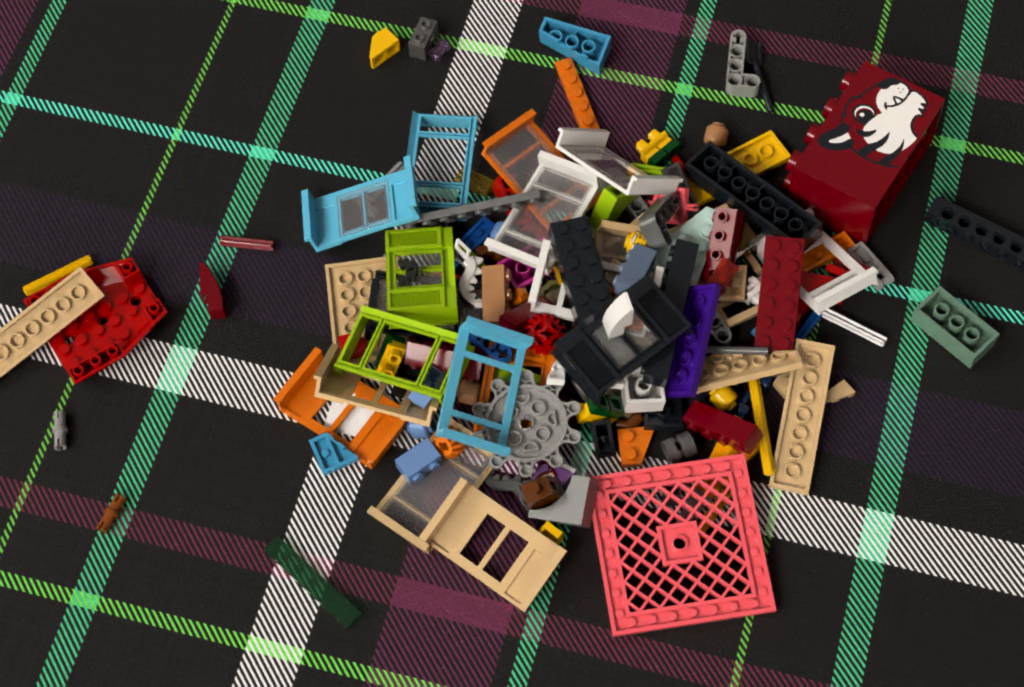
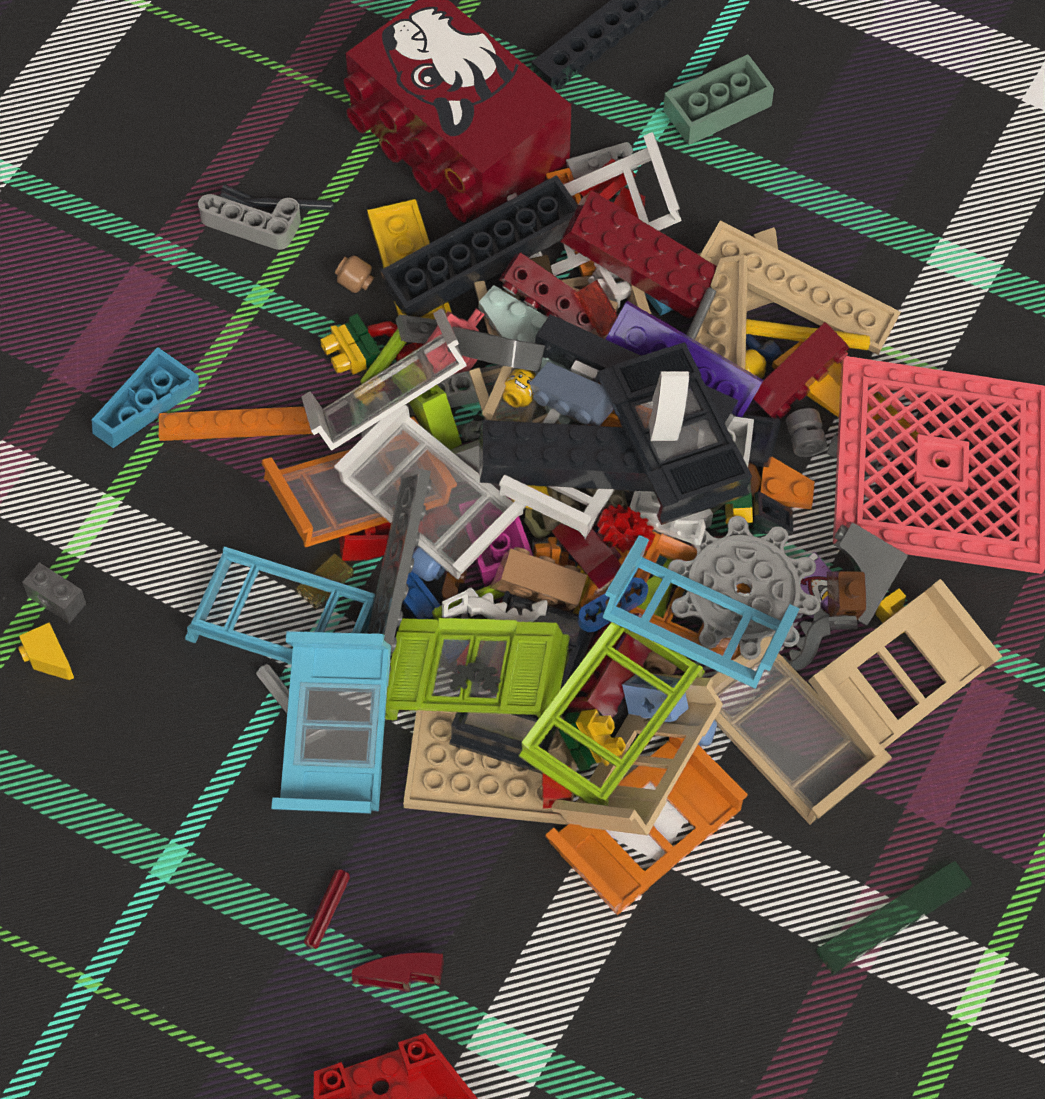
camera: 80 degrees left, 0 degrees up
(331, 453) = (709, 854): dark azure wing -> none
(418, 461) = (758, 737): medium blue brick -> none
(439, 50) = (79, 565): clear purple bush -> none
(448, 447) = (739, 696): orange gear -> none
(854, 327) = (693, 195): axle -> none

